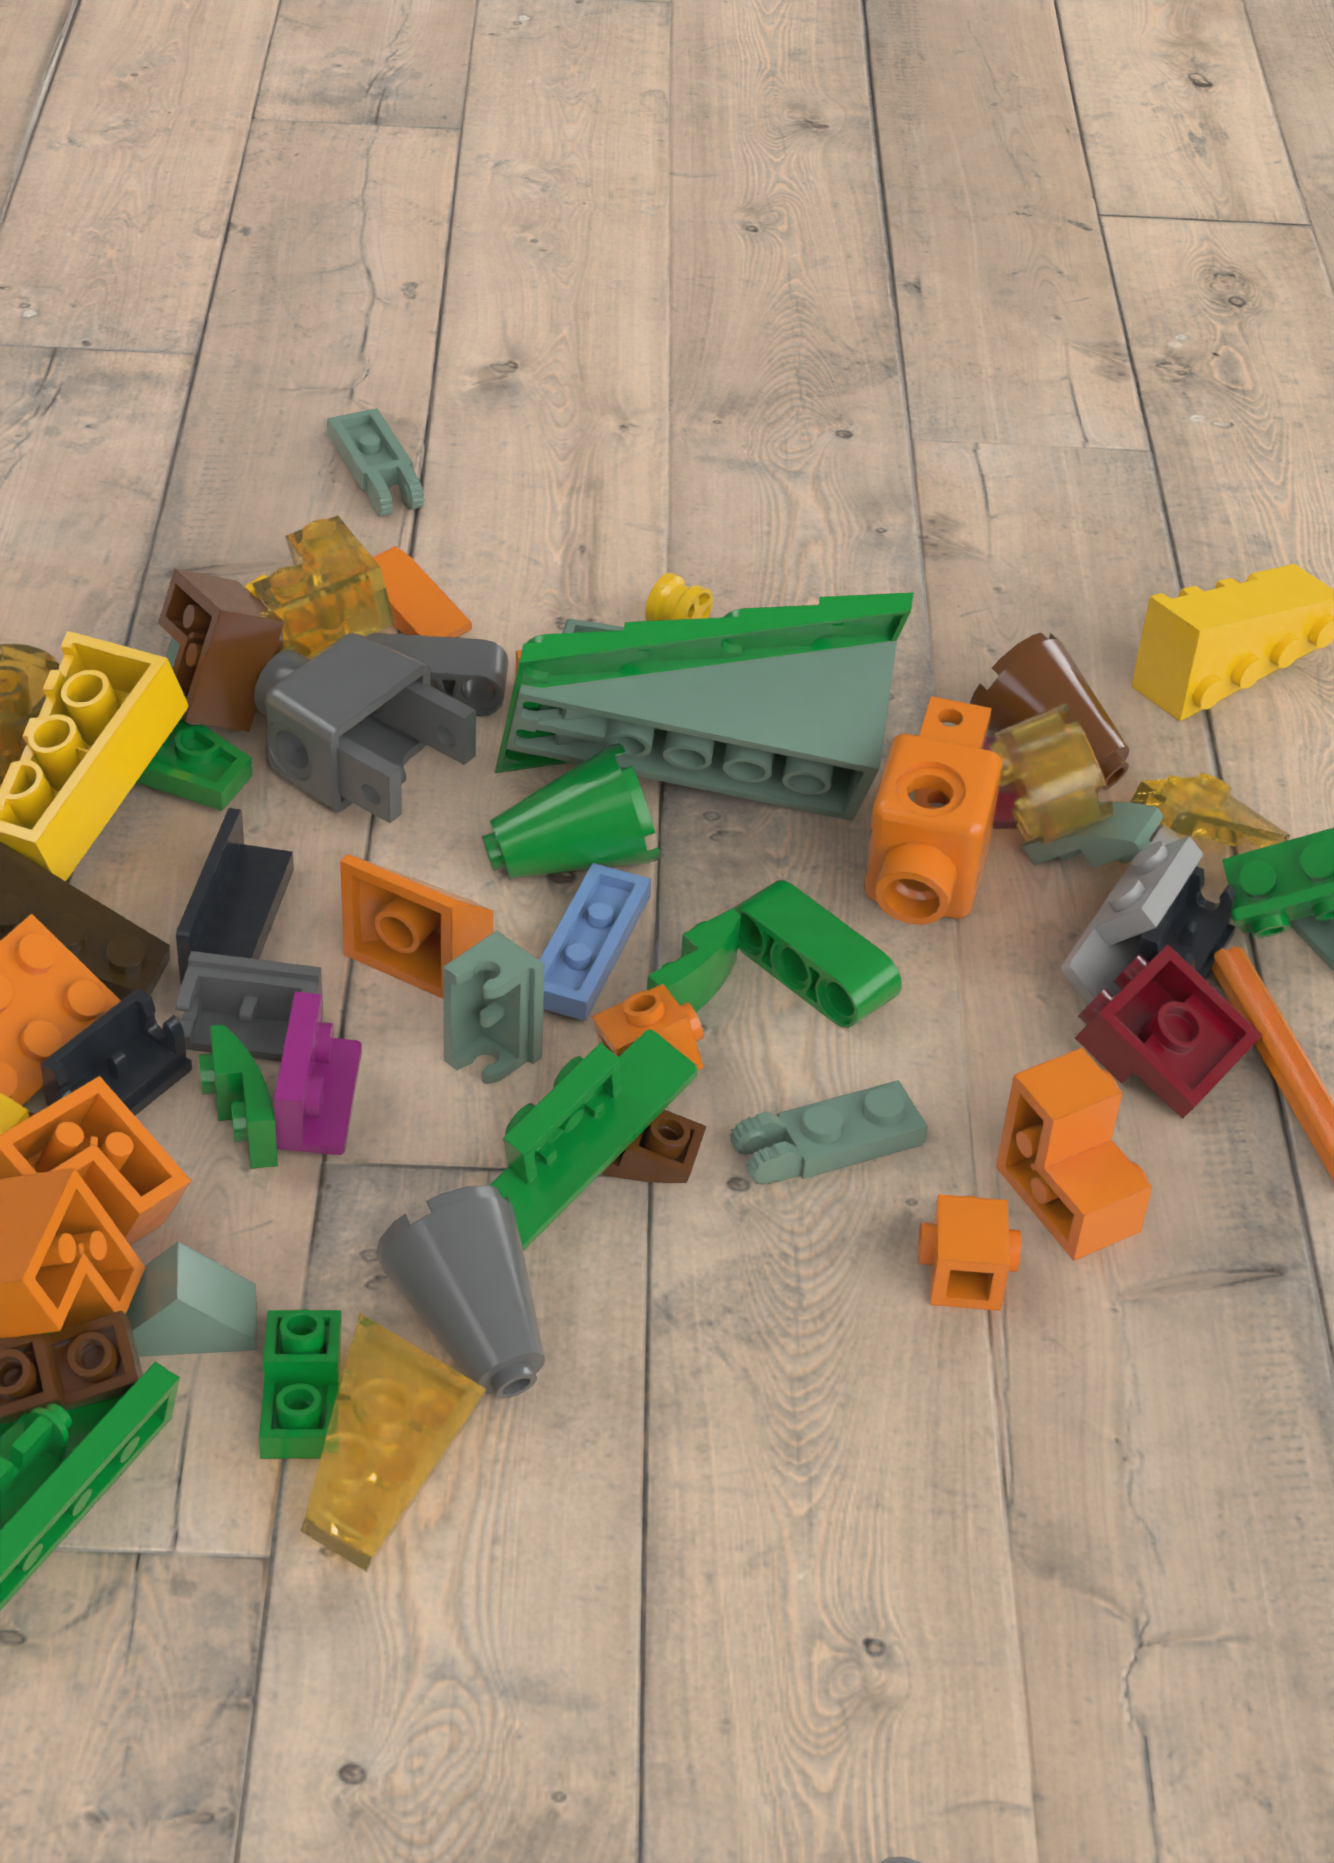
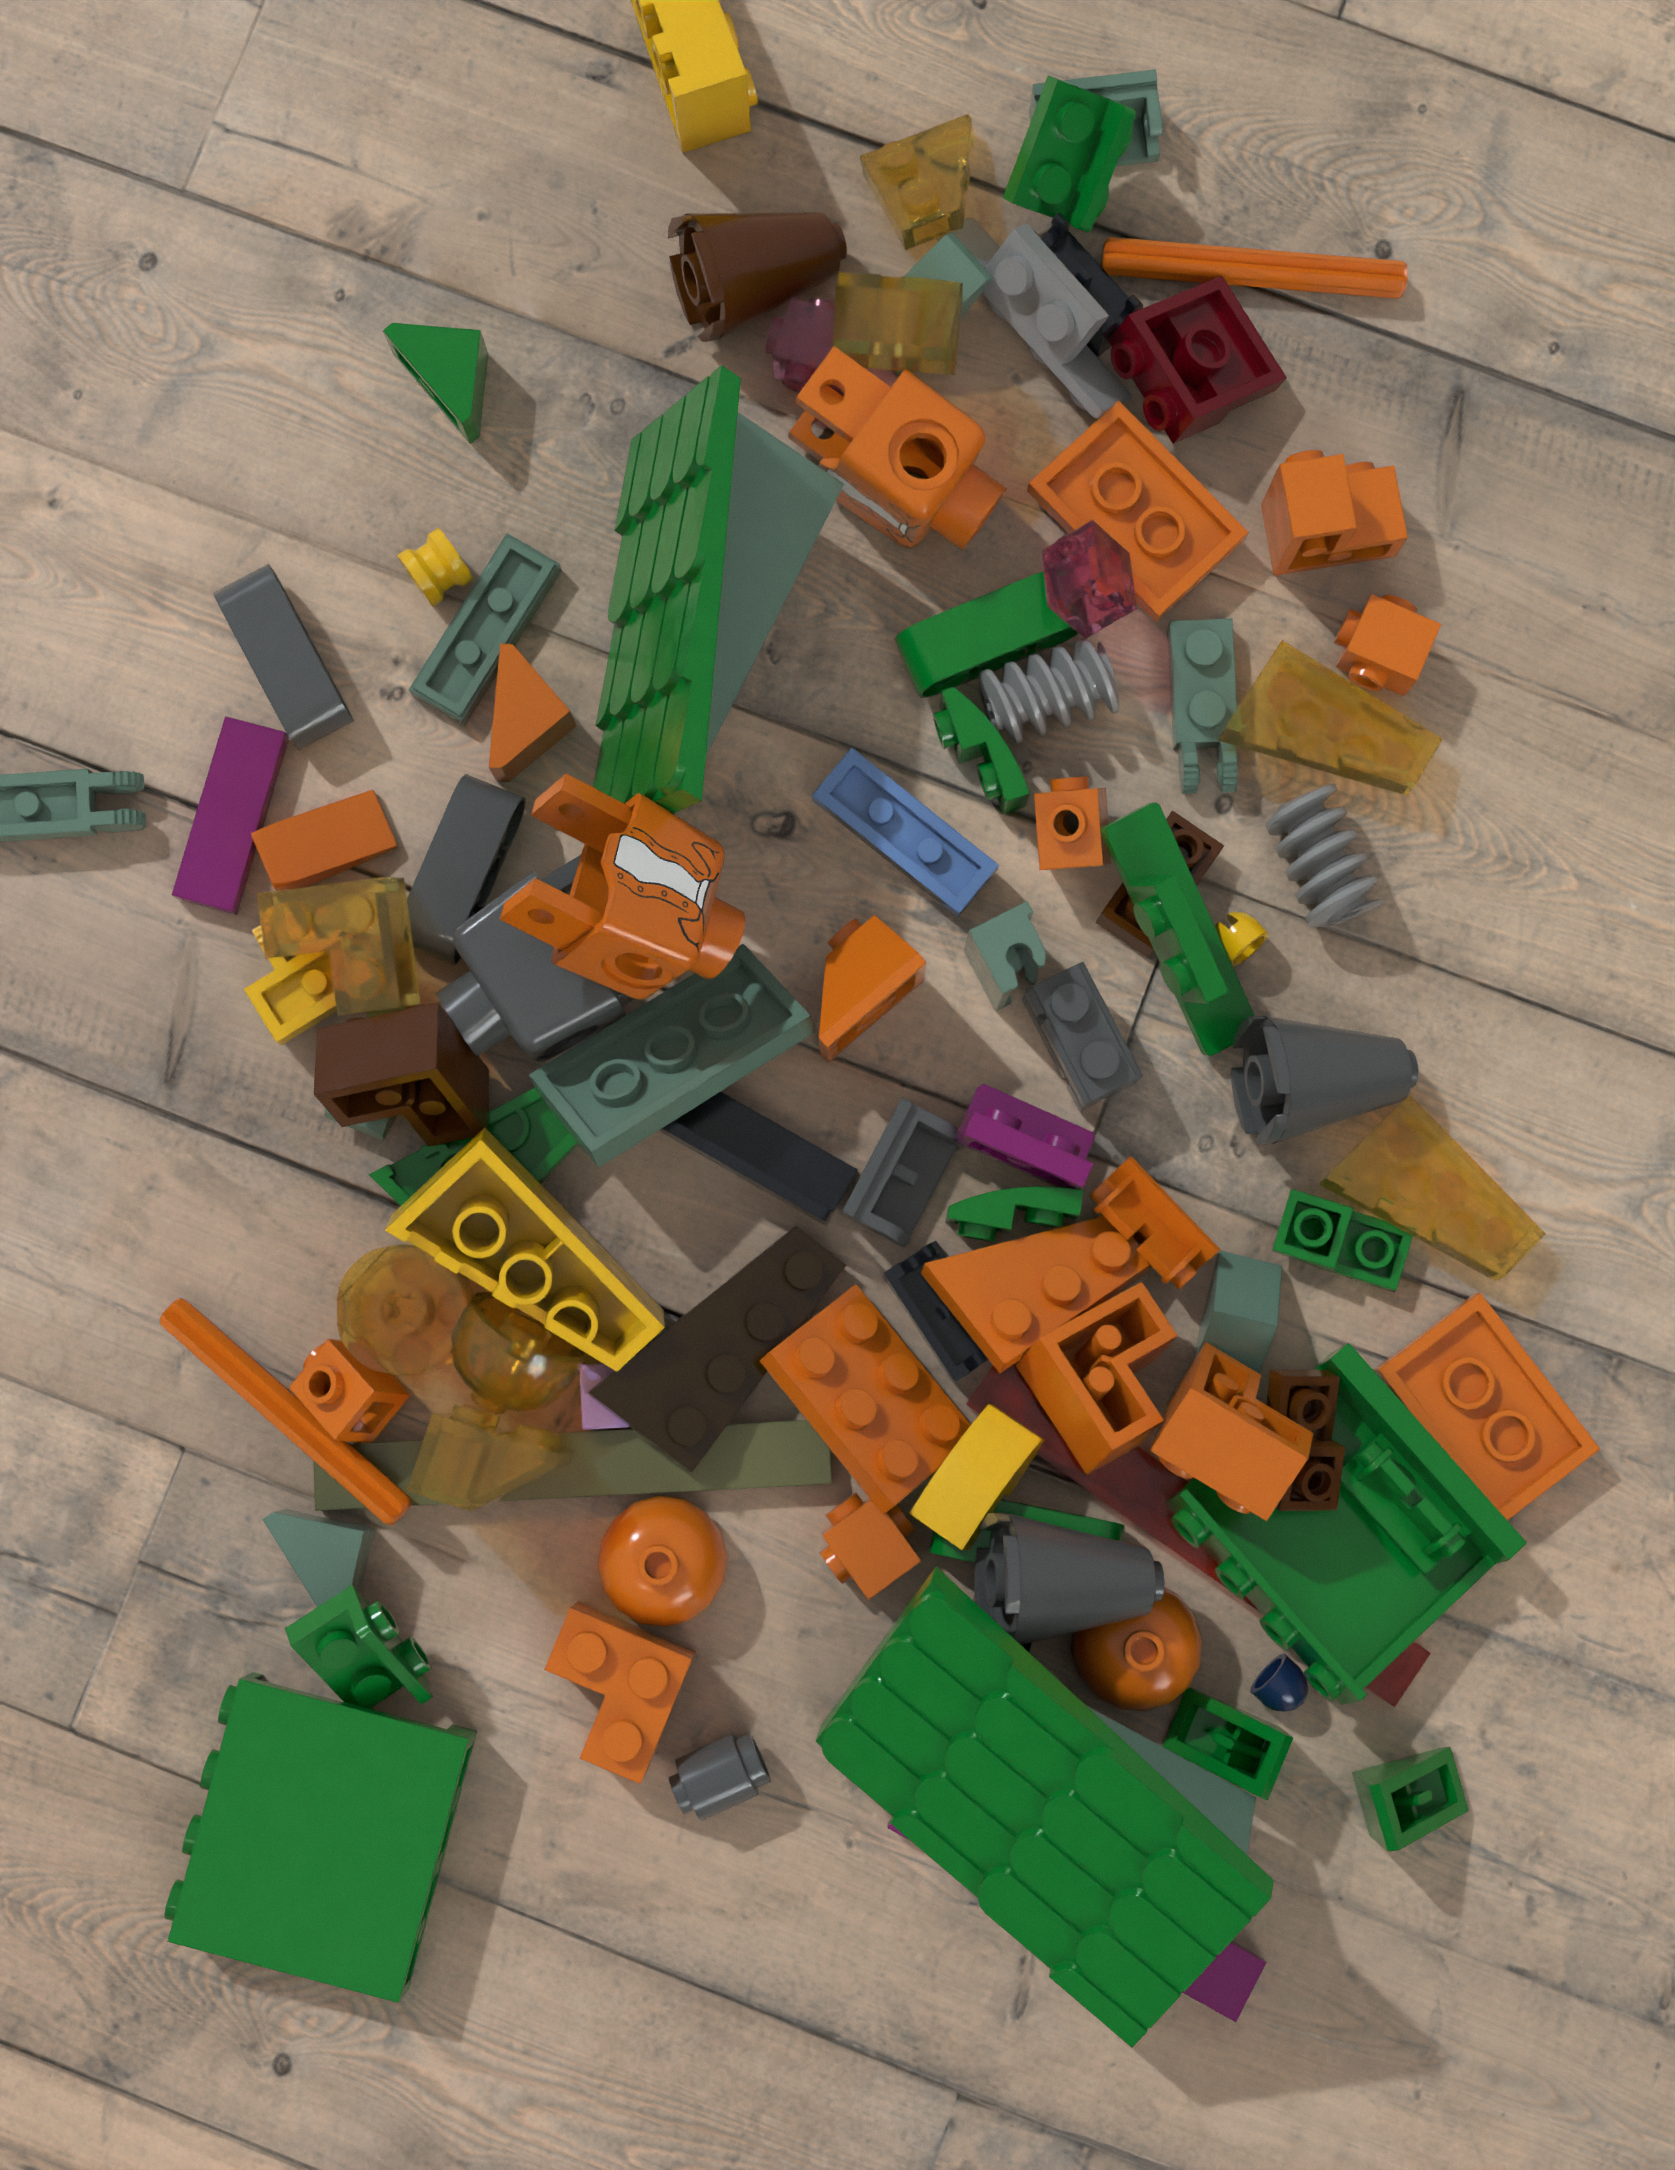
camera: 65 degrees left, 40 degrees up
(142, 1562) = (1488, 1405): none -> orange plate
(180, 1114) = (1034, 1284): none -> orange wing
(244, 1223) = (1164, 1231): none -> orange hinge
(293, 801) = (671, 1056): none -> sand green plate
(424, 698) = (638, 897): none -> orange piece
(437, 1101) = (1081, 1036): none -> dark grey brick
(438, 550) = (228, 812): none -> magenta tile
(557, 545) = (283, 657): none -> dark grey beam
(575, 821) = (762, 795): green cone -> none
(587, 1206) = (1243, 936): none -> yellow hinge
(713, 1247) = (1322, 858): none -> light grey piece
(779, 1002) = (1050, 689): none -> light grey piece
(848, 569) = (448, 367): none -> green slope
(857, 1220) = (1329, 724): none -> clear yellow wing
(895, 976) = (1088, 579): none -> clear pink brick
(988, 1025) = (1144, 503): none -> orange plate

